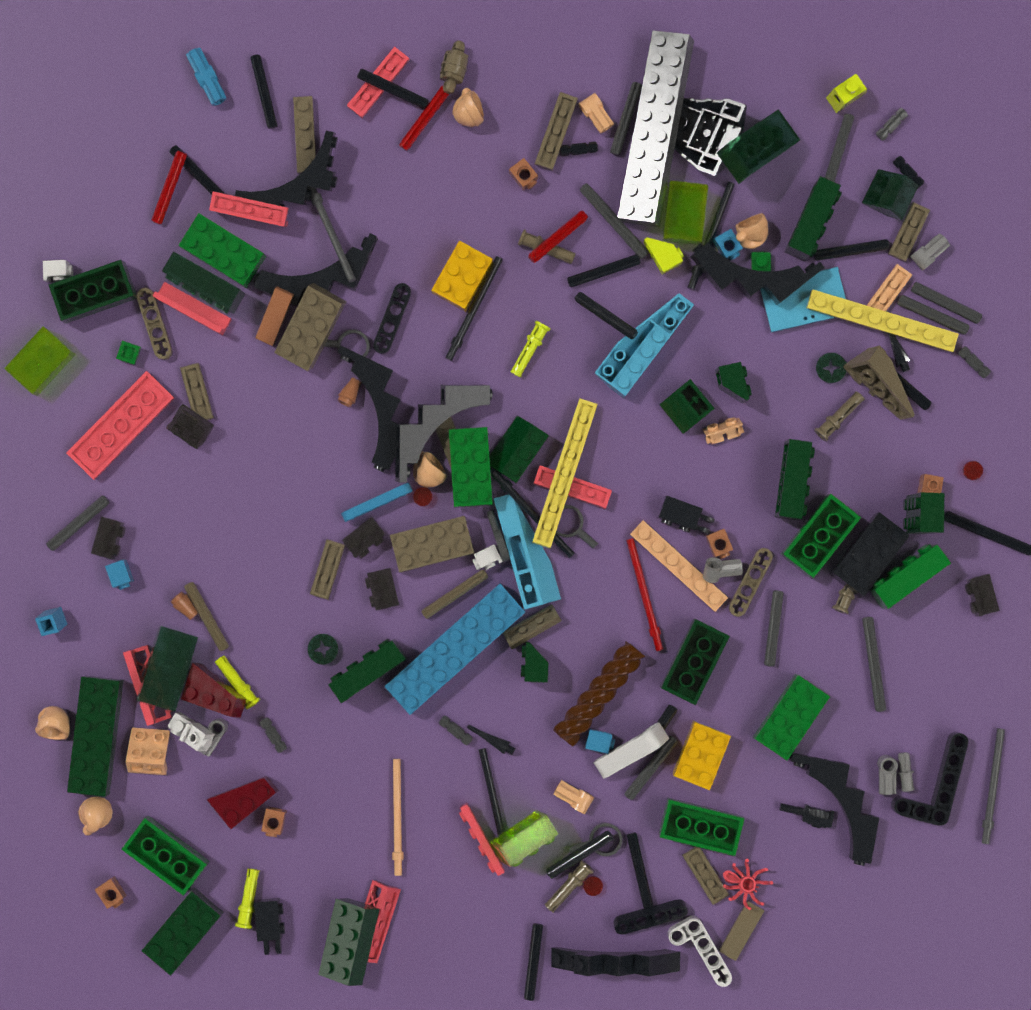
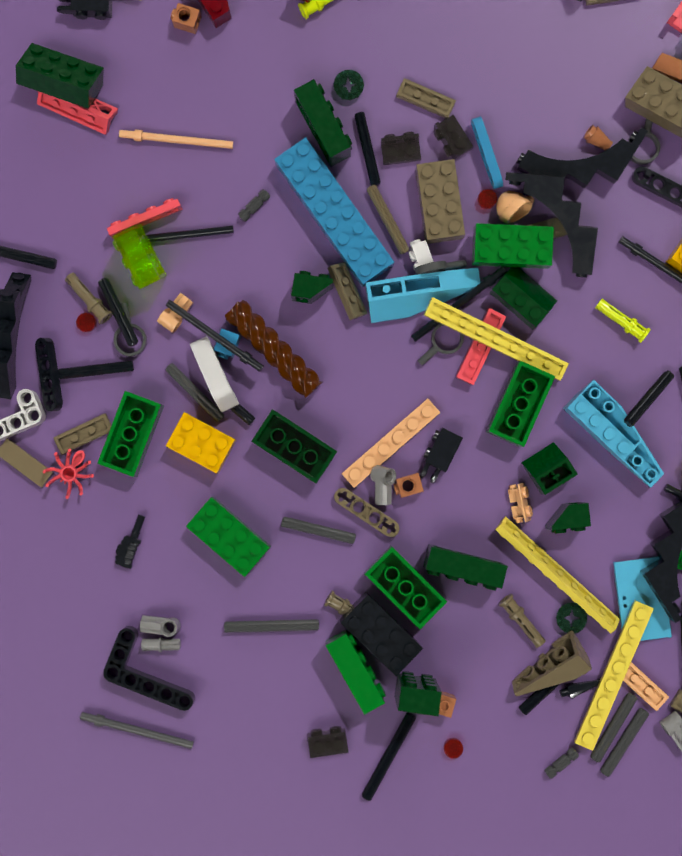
camera: 90 degrees right, 0 degrees up
(273, 735) = (270, 27): dark grey axle -> none
(385, 622) = (367, 148): none -> black axle
(500, 744) = (235, 246): black piece -> none
(612, 721) = (245, 357): none -> black bar
(626, 442) = (520, 404): none -> green brick
(654, 631) = (329, 411): red bar -> none
(790, 386) = (558, 575): none -> light yellow plate
(834, 777) = (164, 571): black arch -> none

